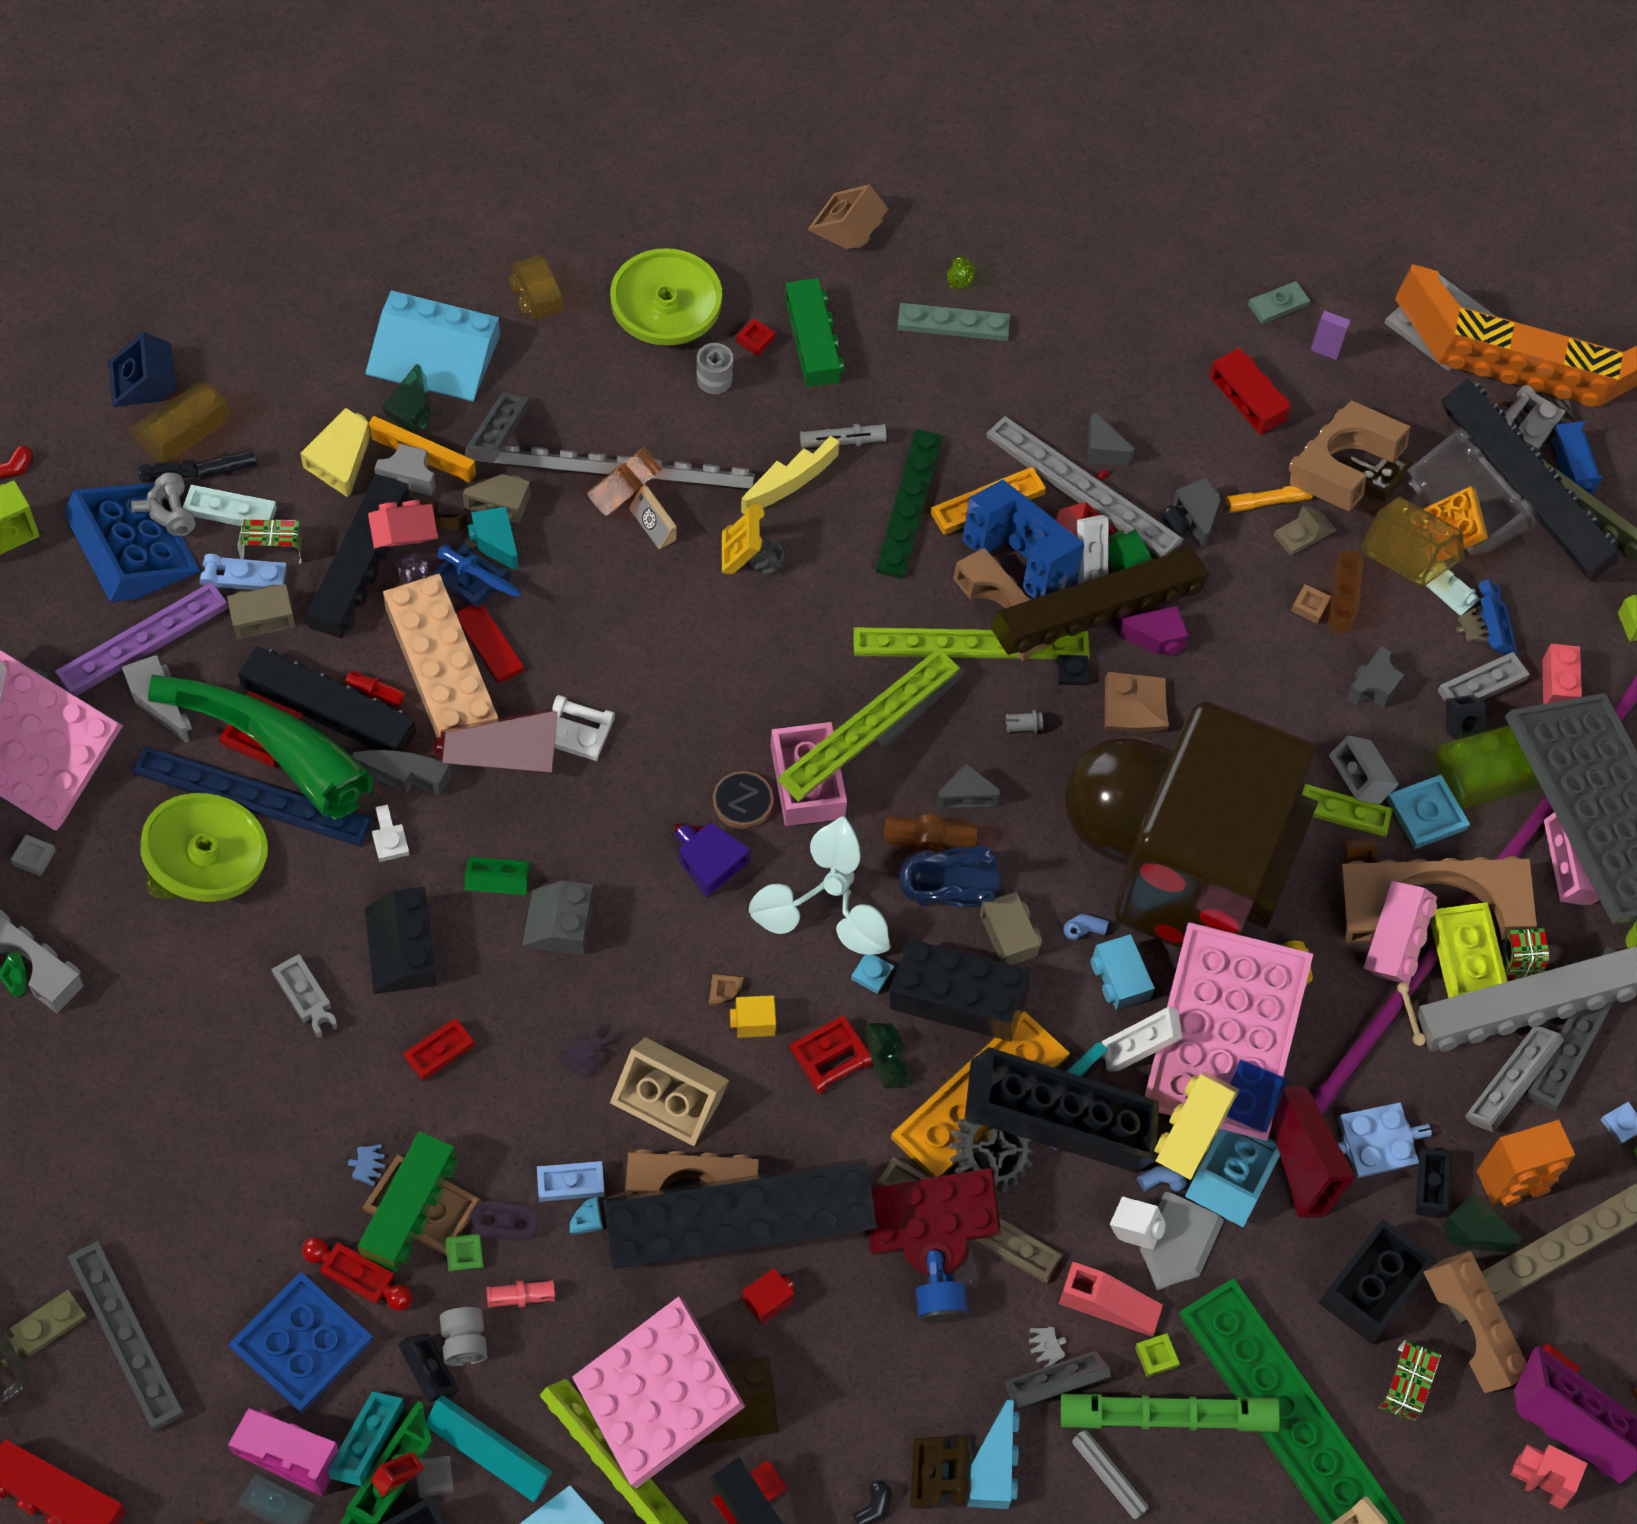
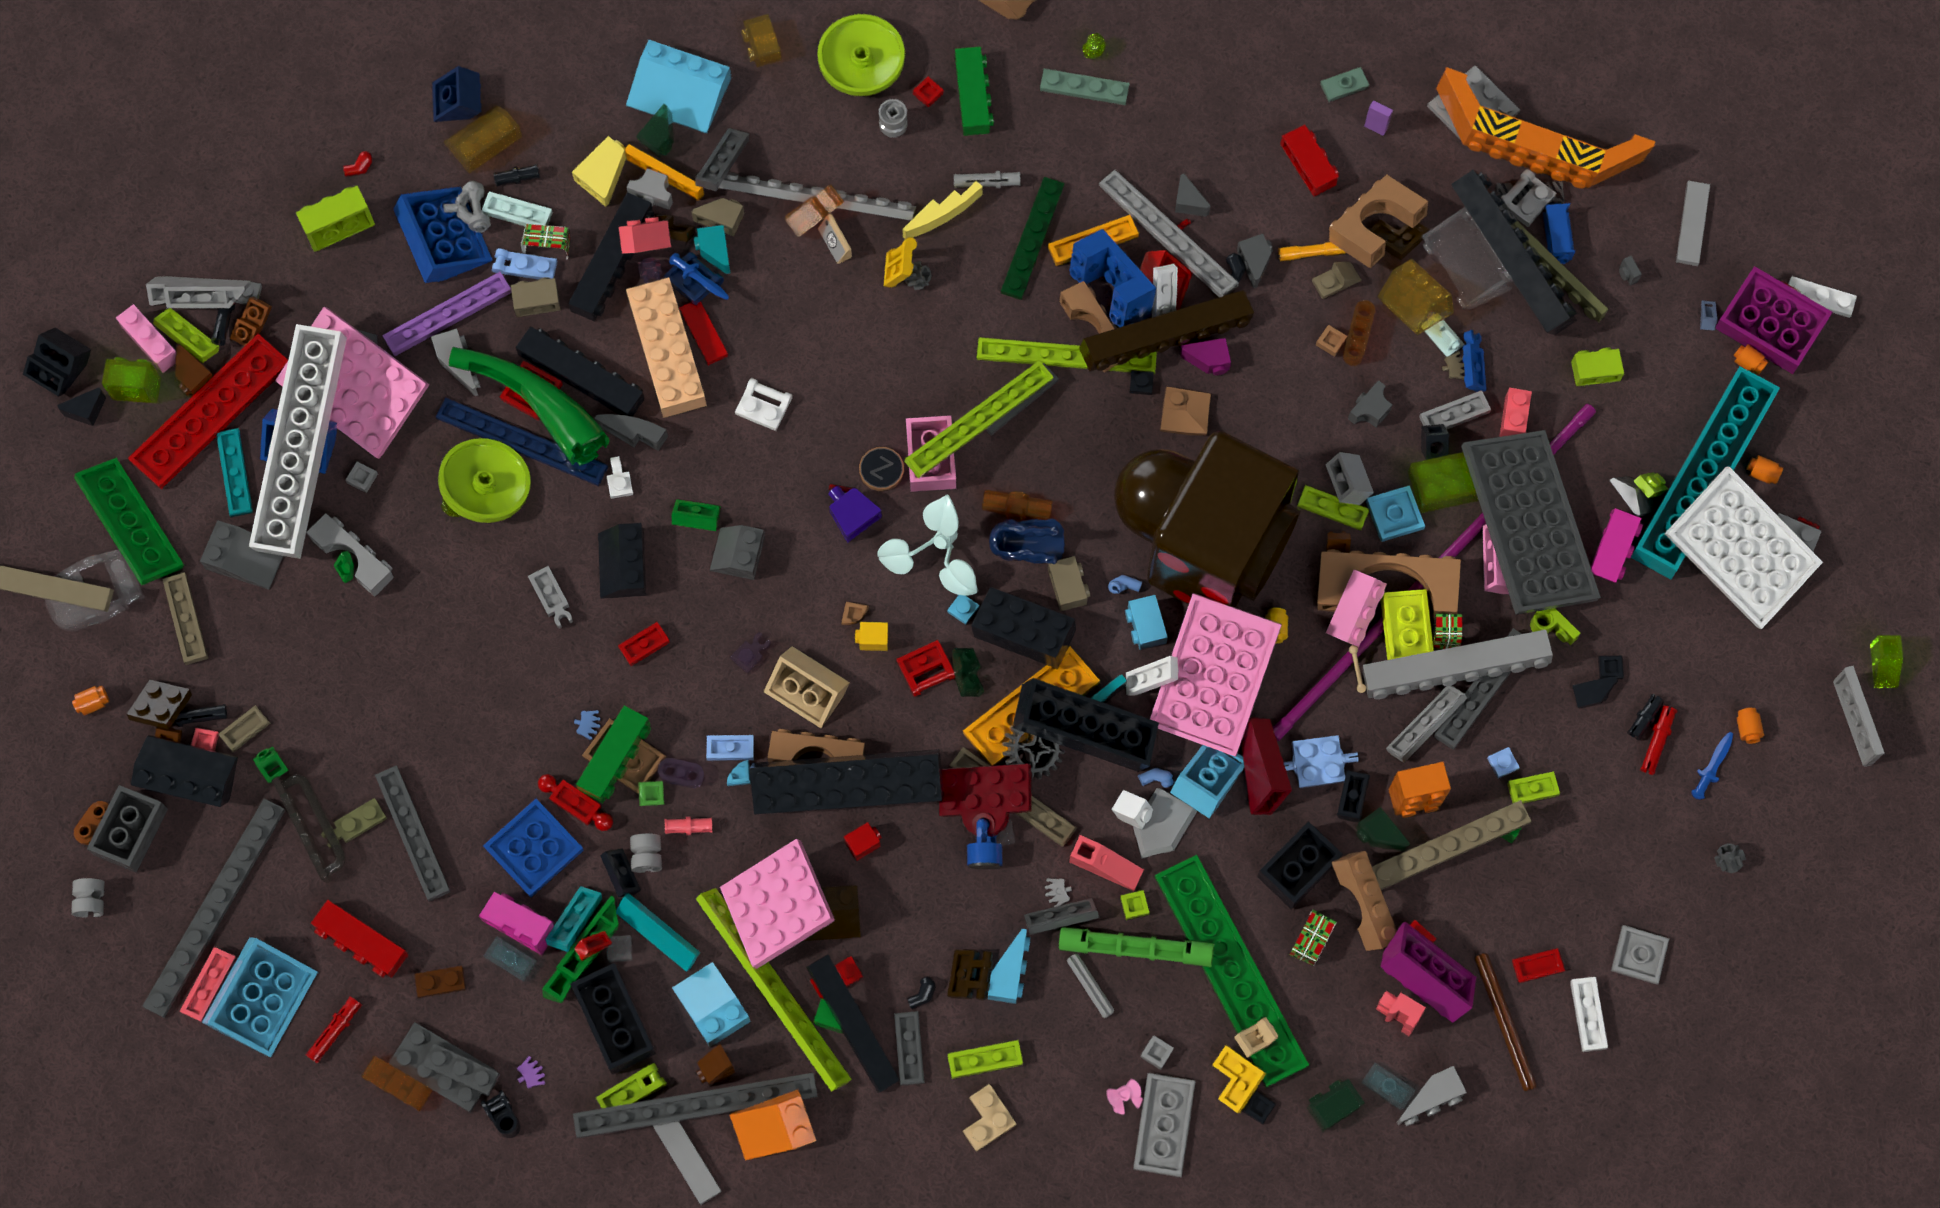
camera: 10 degrees right, 10 degrees up
(147, 472) = (486, 177): black axle -> none
(375, 688) = (615, 363): red axle -> none
(506, 742) = (705, 415): slope -> none
(968, 790) = (1049, 474): dark grey slope -> none
(1024, 722) = (1099, 422): light grey pin -> none
(1126, 550) = (1192, 290): green brick -> none
(1195, 1124) = (1182, 741): light yellow brick -> none
(1257, 1095) = (1228, 723): clear blue piece -> none
(1464, 513) = (1456, 278): light orange tile -> none

